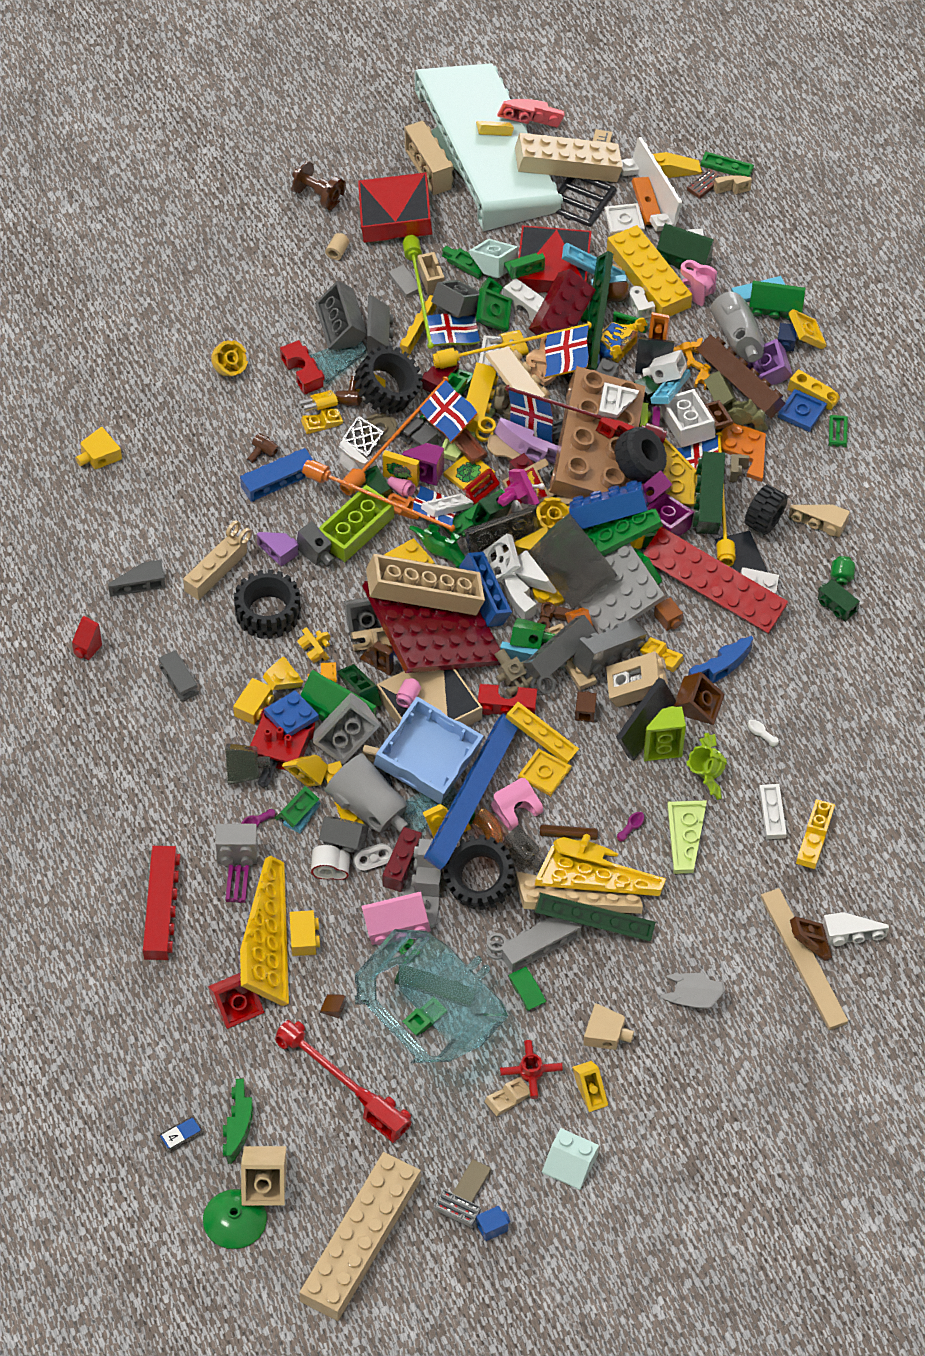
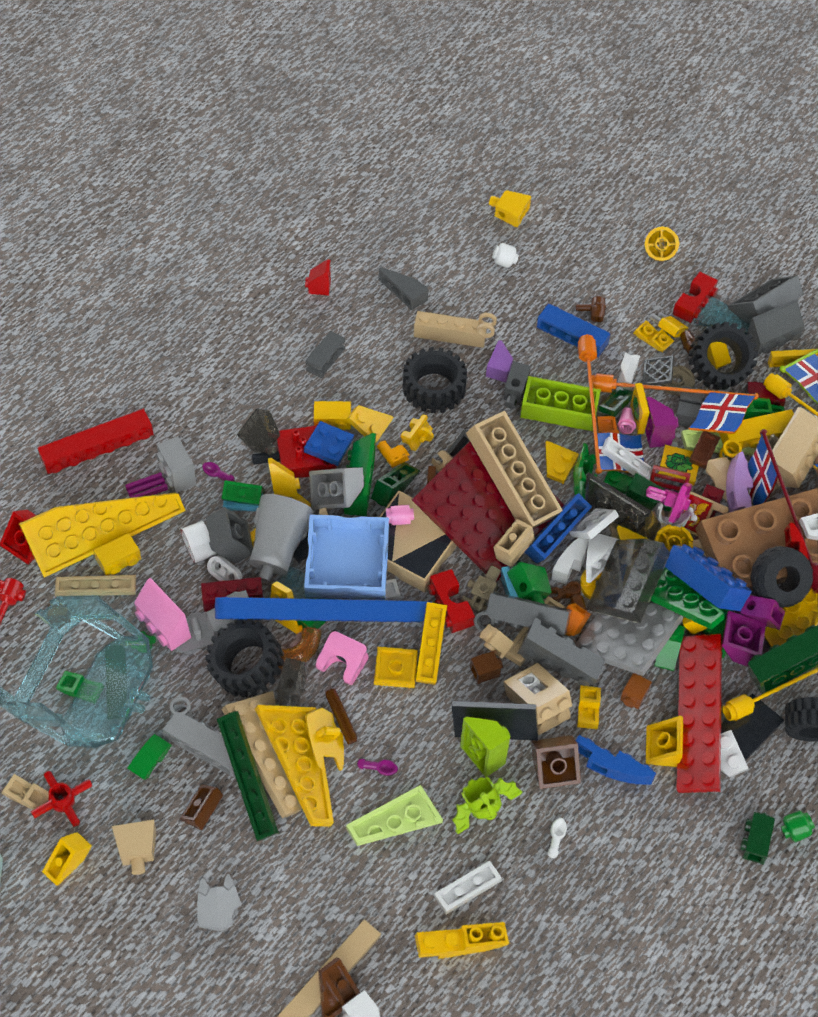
camera: 60 degrees right, 0 degrees up
(154, 483) = (505, 255): none -> white head
(322, 966) = (95, 585): none -> tan tile
(487, 623) = (514, 543): none -> tan brick
(568, 685) = (496, 641): none -> tan brick
(593, 969) = (201, 806): none -> reddish brown slope
(725, 617) = (665, 742): none -> yellow slope

